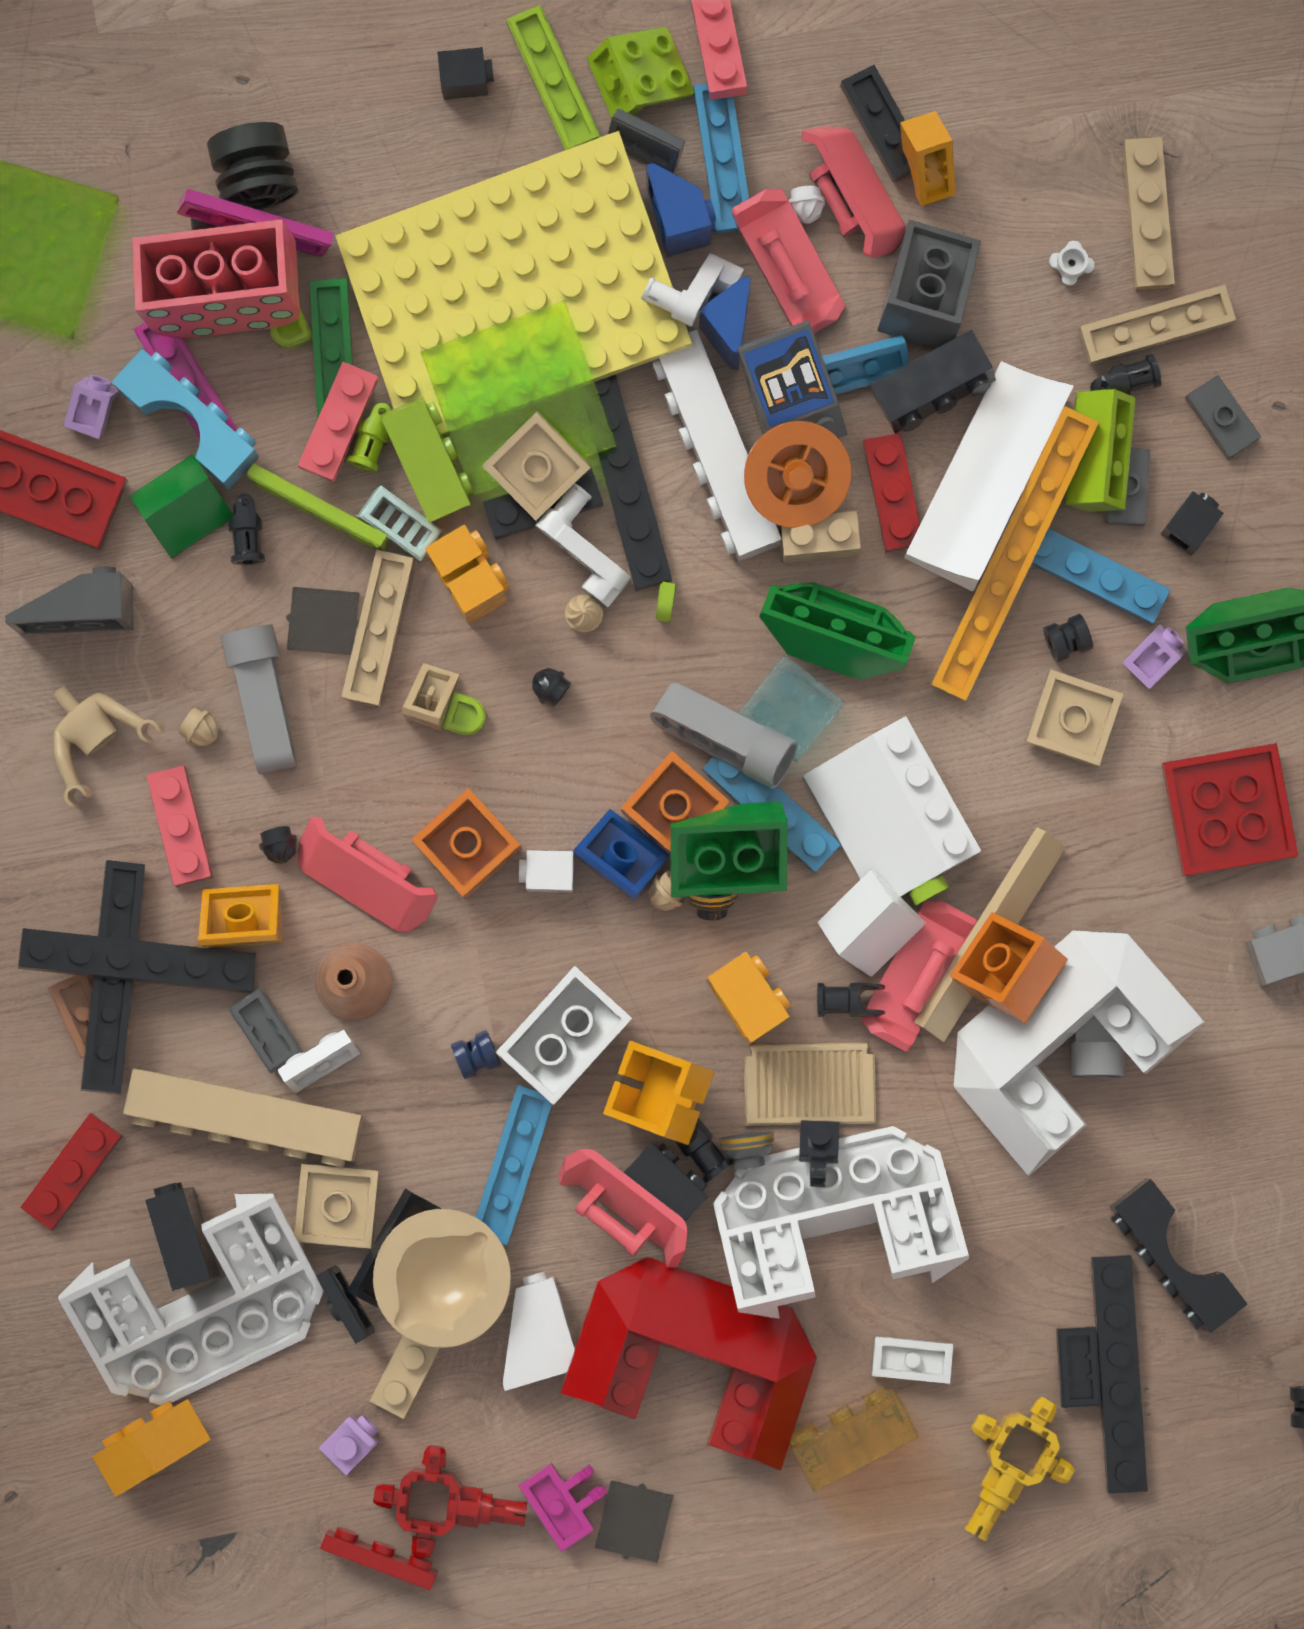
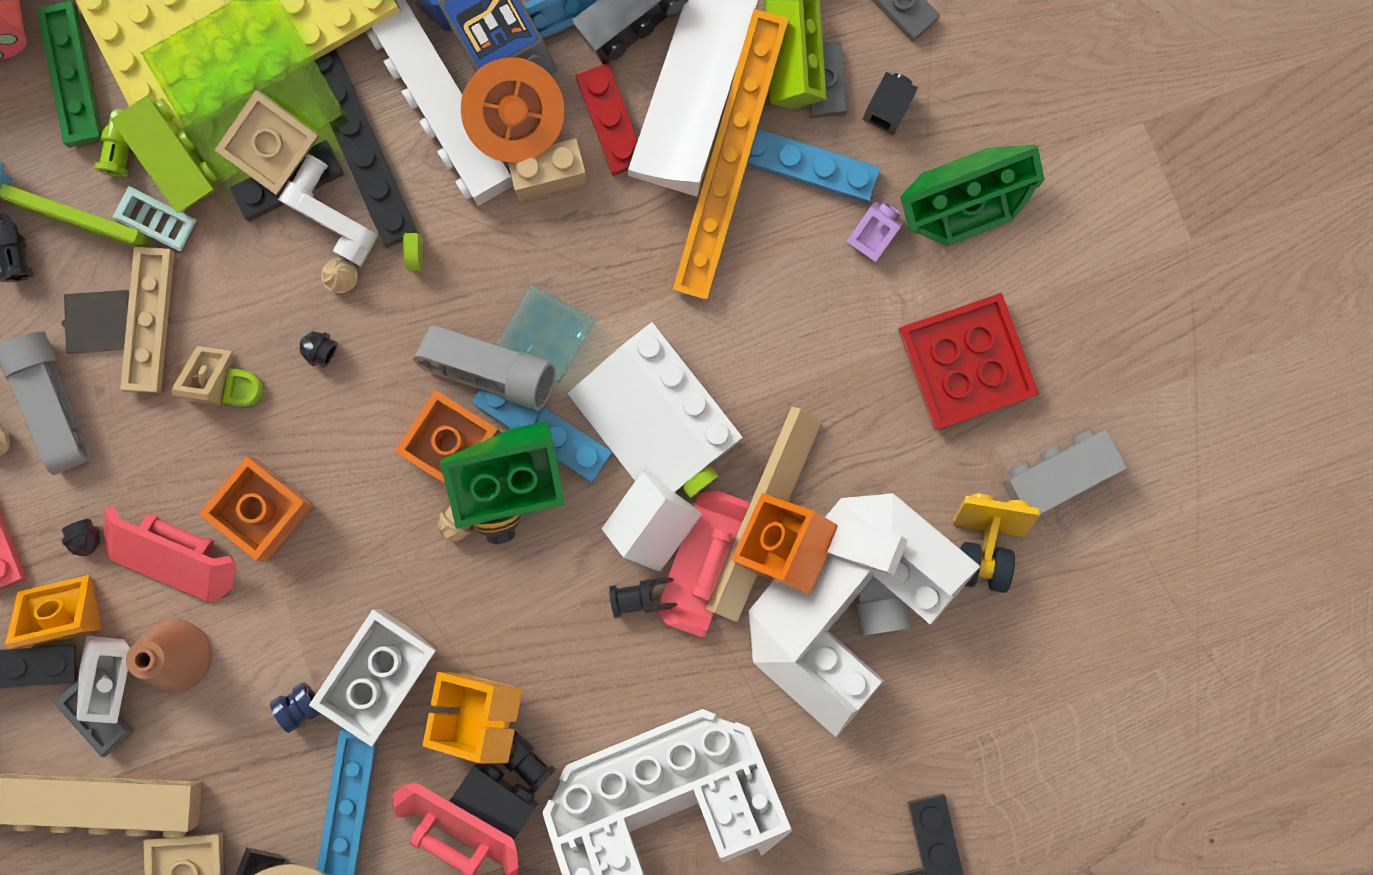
camera: 15 degrees left, 0 degrees up
(284, 991) = (101, 679): none -> white slope
(293, 334) = (31, 59): lime tile -> none
(309, 1067) = (147, 738): white plate -> none
(338, 422) = (79, 133): coral plate -> none
(465, 571) = (221, 254): light orange piece -> none
(547, 871) = (339, 522): white brick -> none
(621, 854) = (405, 495): blue slope -> none
(748, 996) = (544, 612): light orange piece -> none
(748, 1148) = (566, 754): dark grey piece -> none
(809, 1084) = (617, 682): tan window -> none
(819, 1146) = (634, 741): black plate -> none
(836, 630) = (574, 253): green wedge -> none
(1068, 637) = (793, 226): black wheel -> none
(1074, 718) = (810, 300): tan plate -> none
(1092, 982) = (867, 546): none -> white tile
(1146, 1215) = (1023, 821): black arch -> none
(1229, 976) = (994, 517): none -> yellow plate

